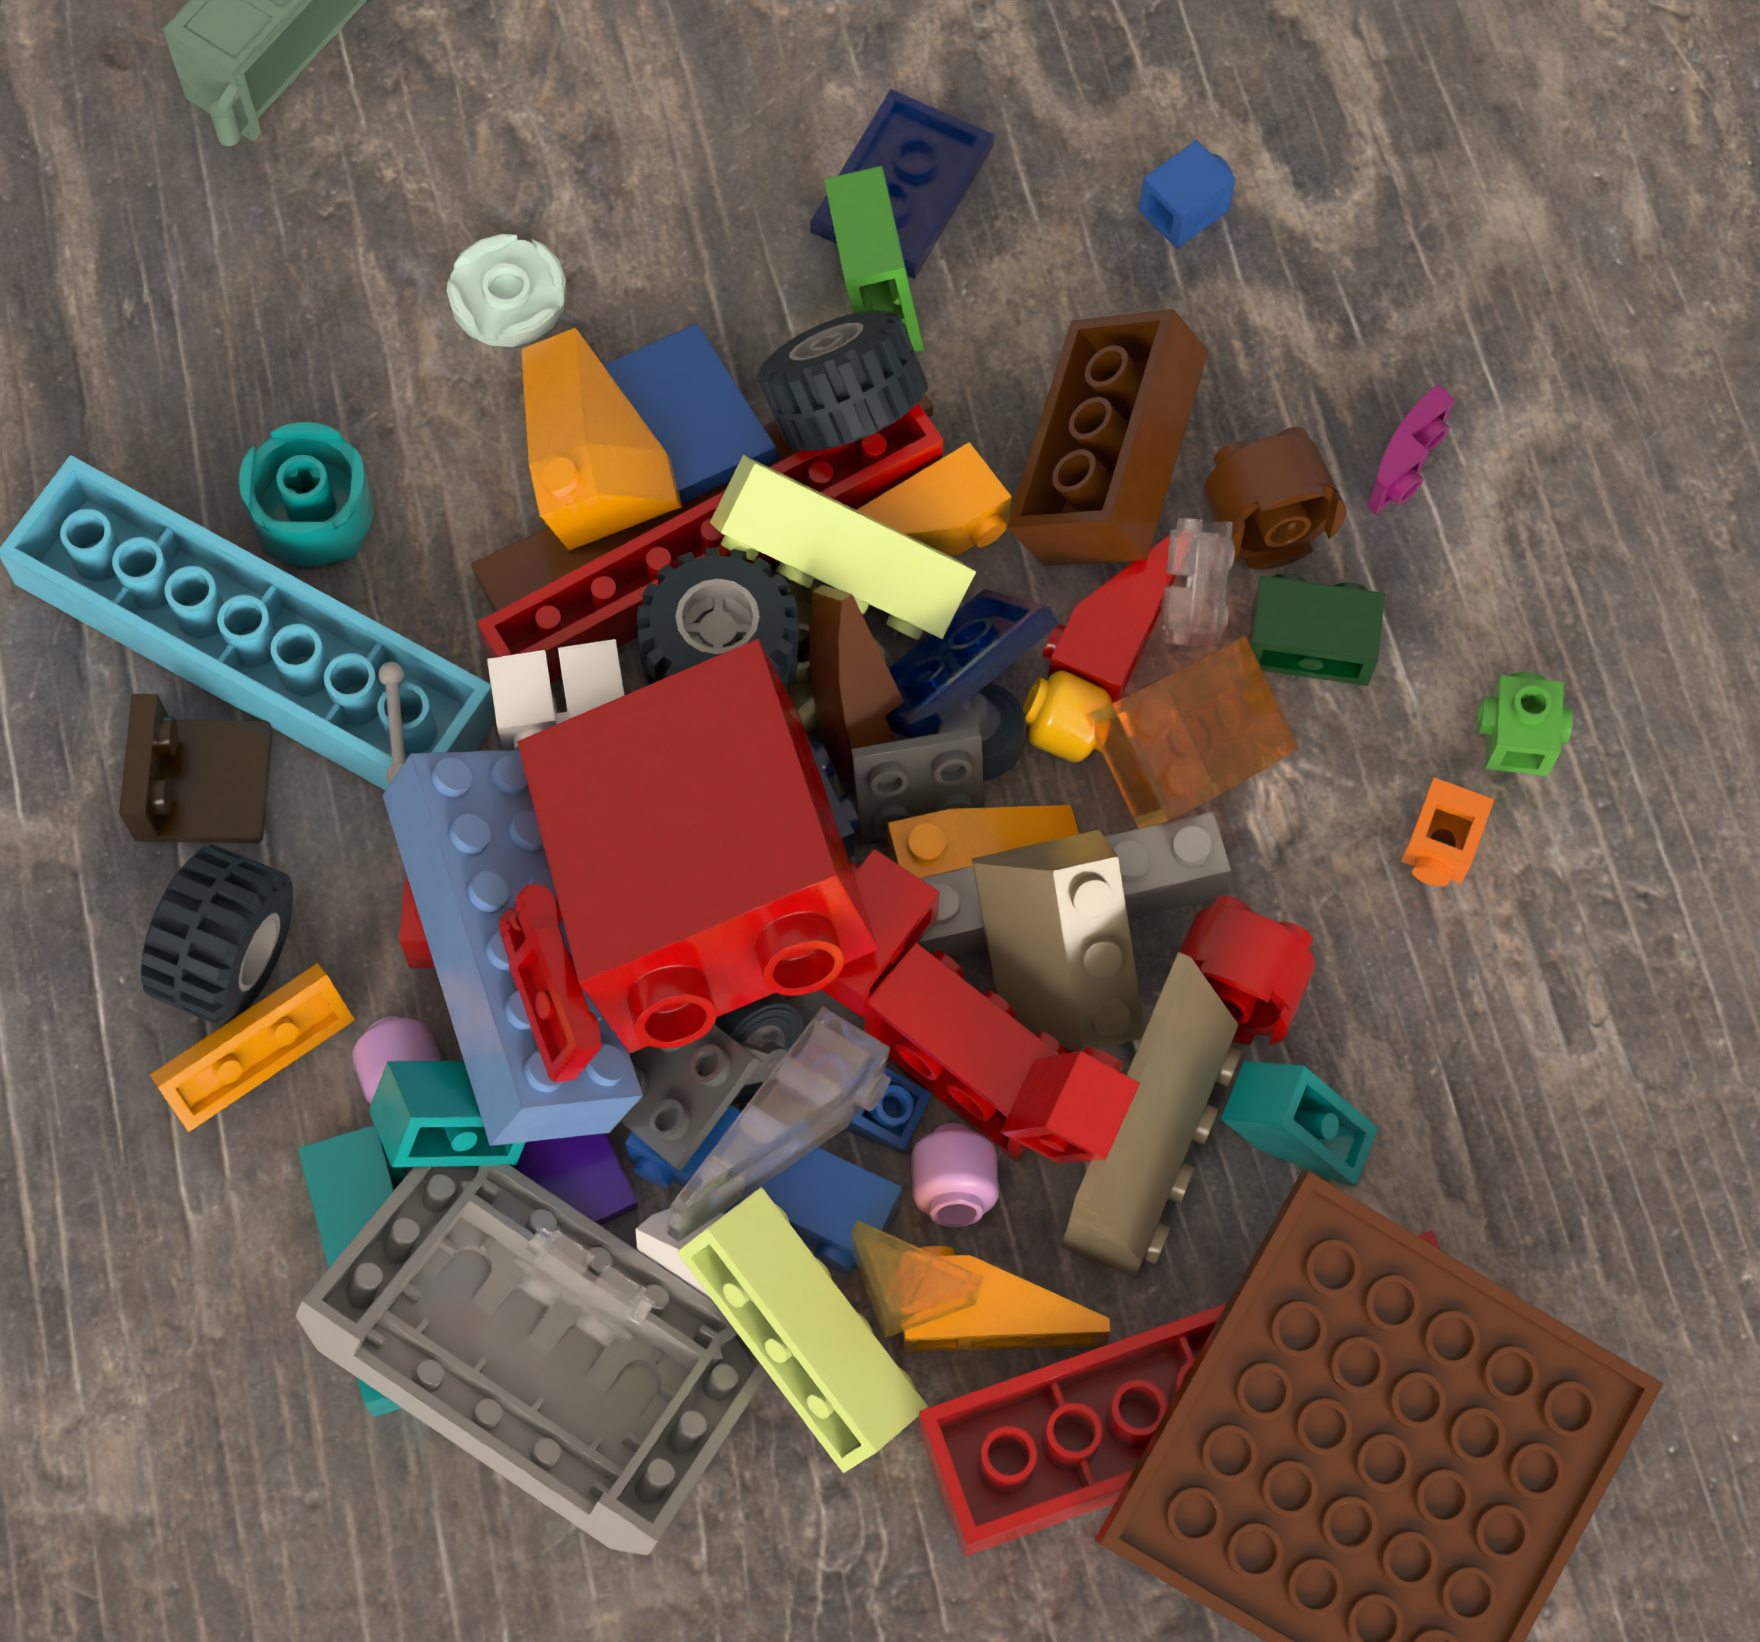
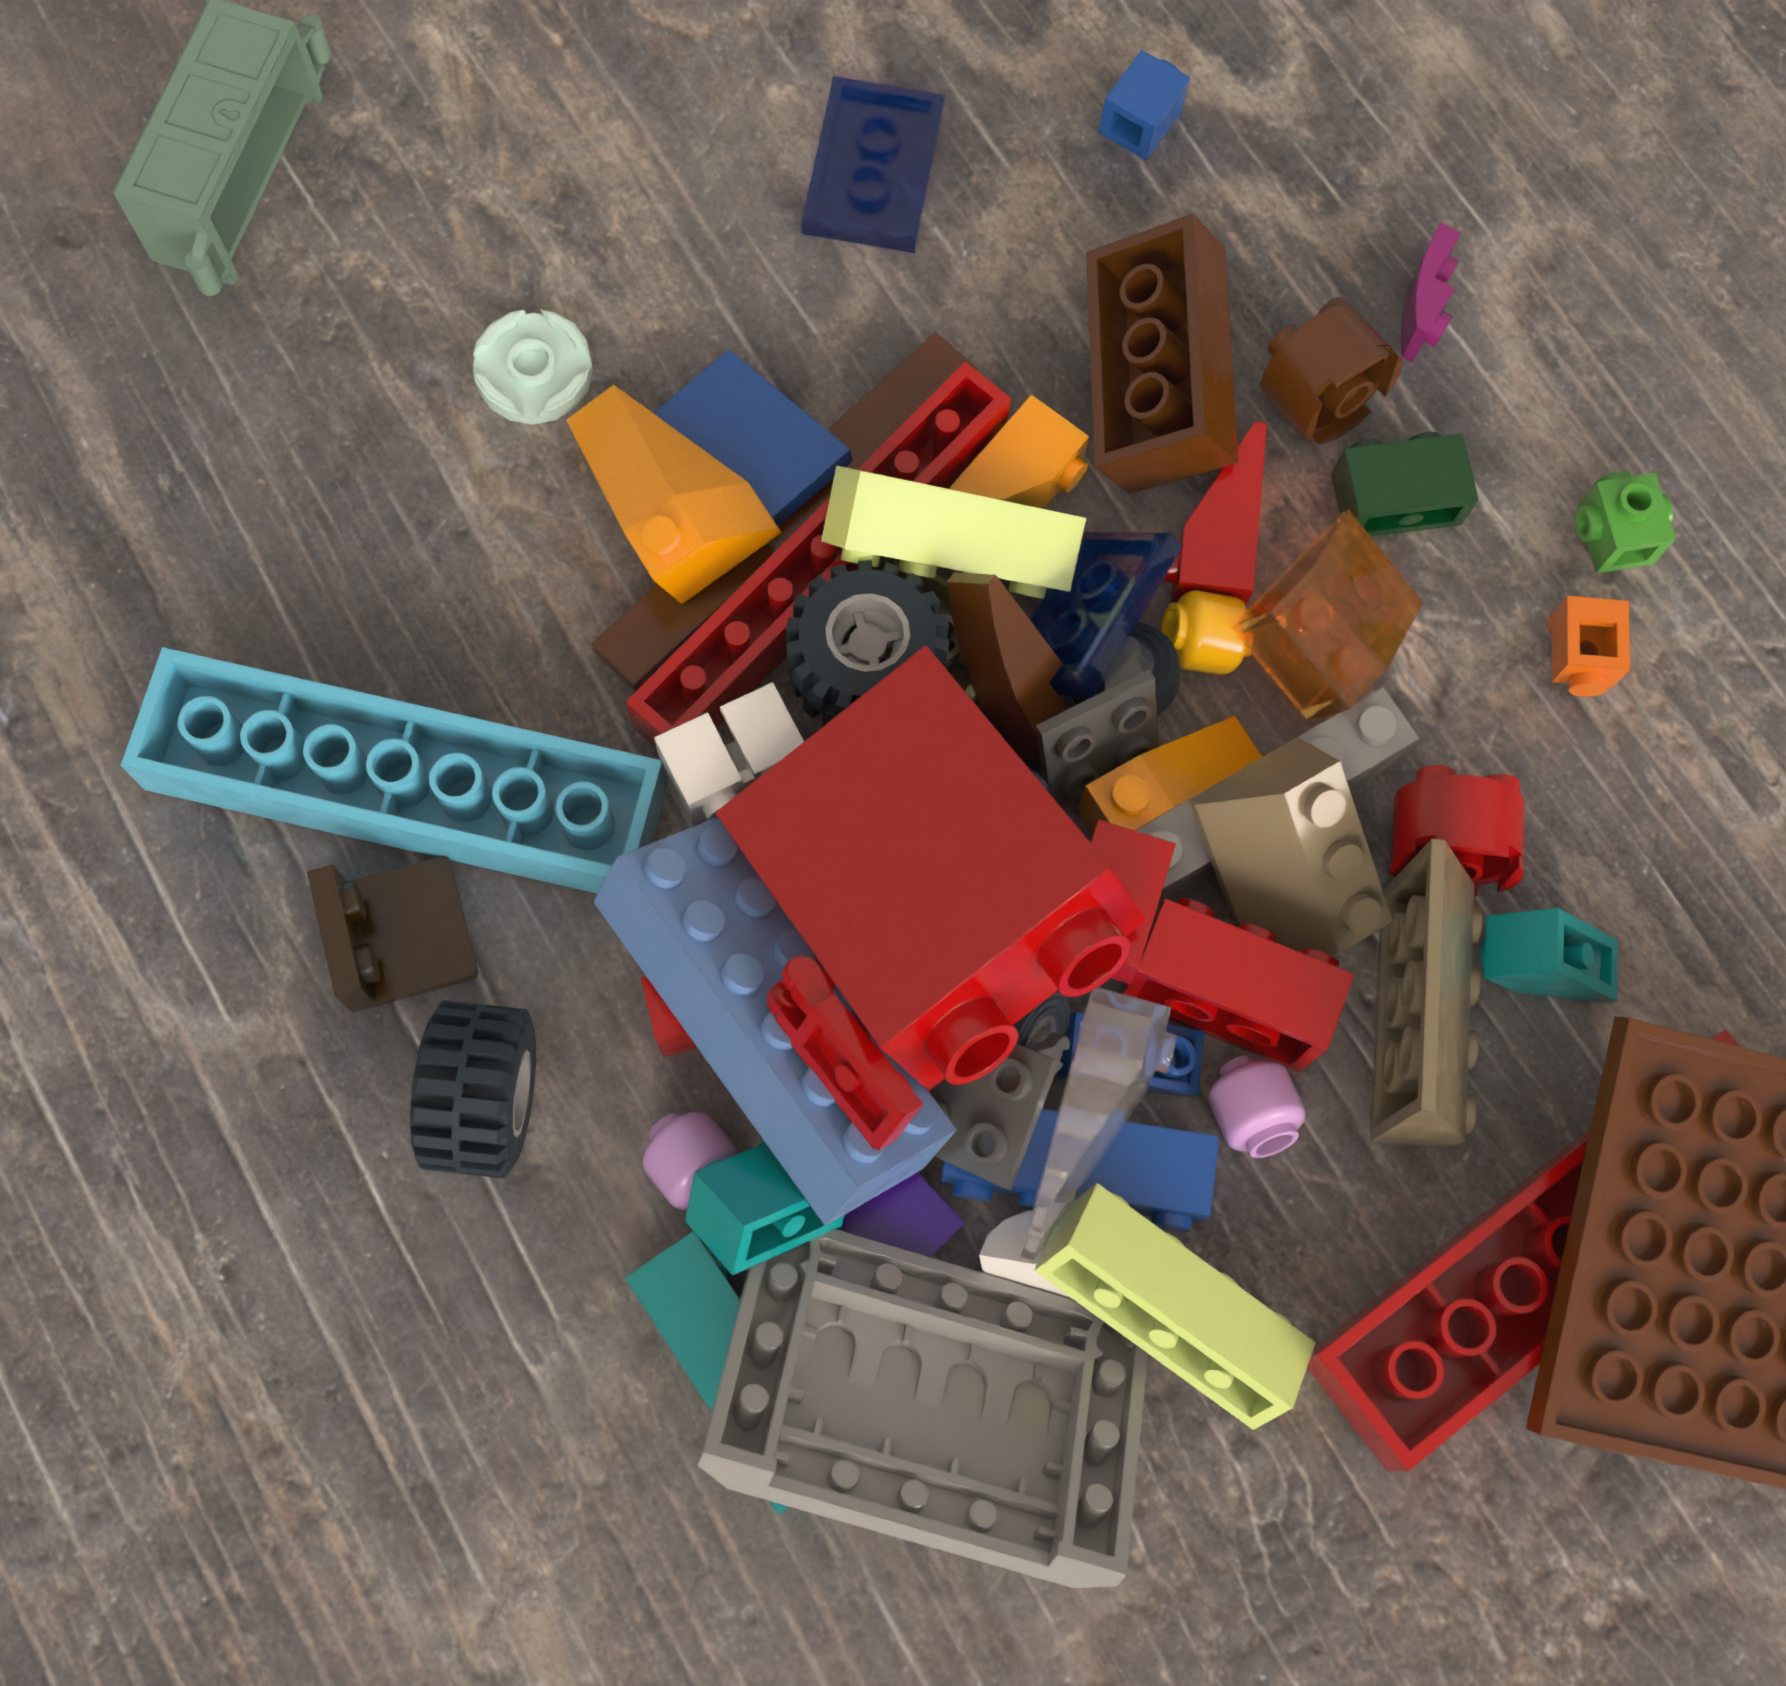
camera: 20 degrees left, 5 degrees up
(252, 1047) = (541, 1186): light orange plate -> none
(307, 495) = (416, 653): teal brick -> none
(391, 675) = (561, 780): light grey hinge -> none
(601, 1306) = (982, 1343): clear hinge -> none
(842, 380) = (900, 367): black wheel -> none
(871, 247) = (881, 245): bright green slope -> none
(908, 1282) = (1263, 1233): clear yellow slope -> none
(1007, 1316) = (1321, 1224): light orange slope -> none
(1071, 1106) = (1385, 1020): red brick -> none
(1205, 555) = (1290, 445): clear hinge -> none

